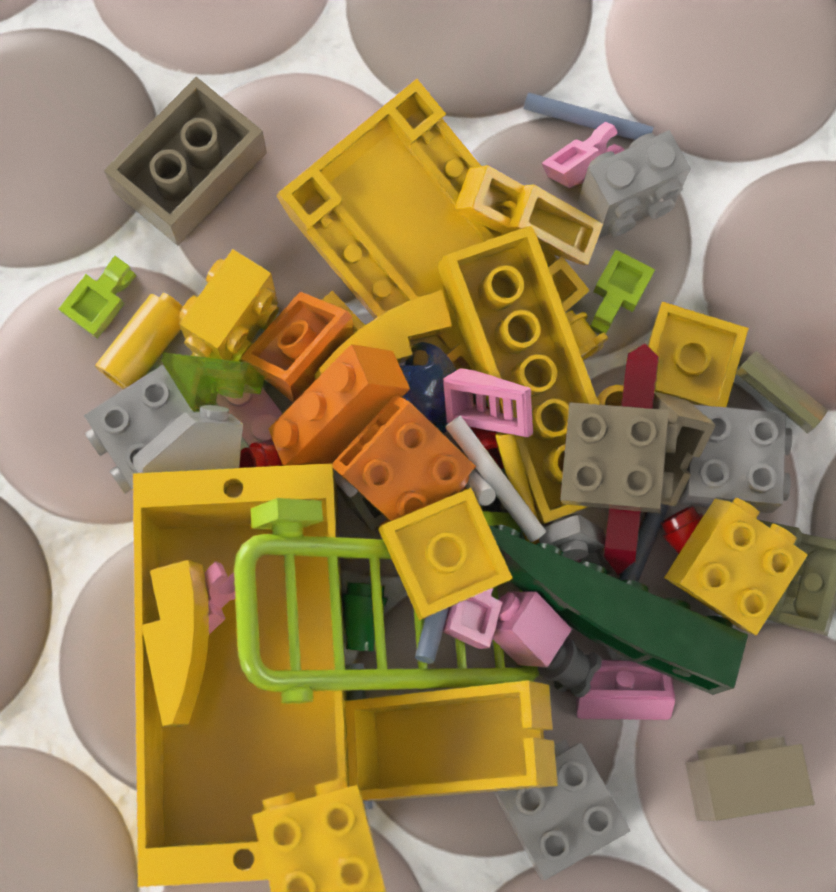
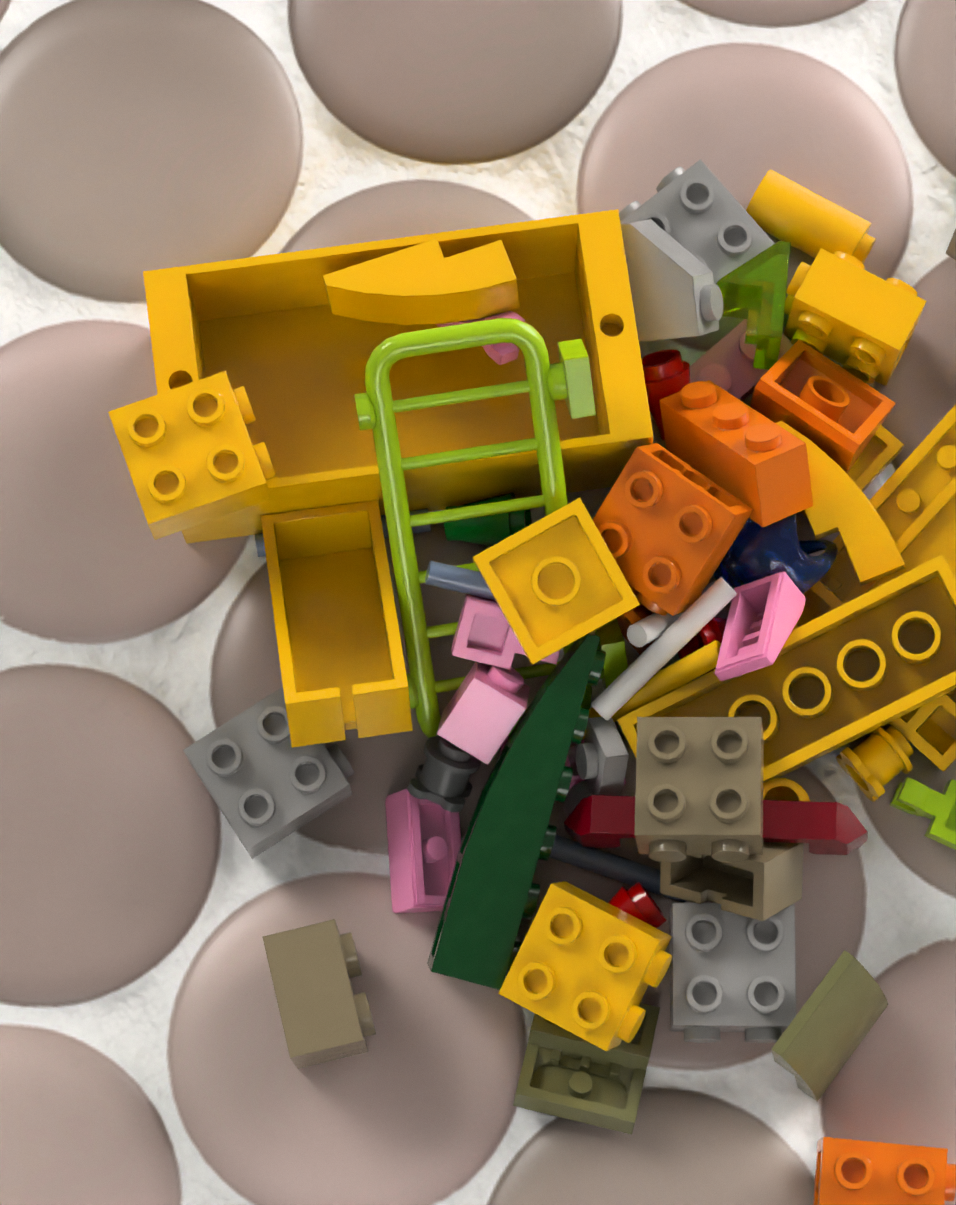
camera: 90 degrees right, 0 degrees up
(95, 302) = (857, 159): lime plate -> none
(696, 355) = (871, 909): yellow plate -> none

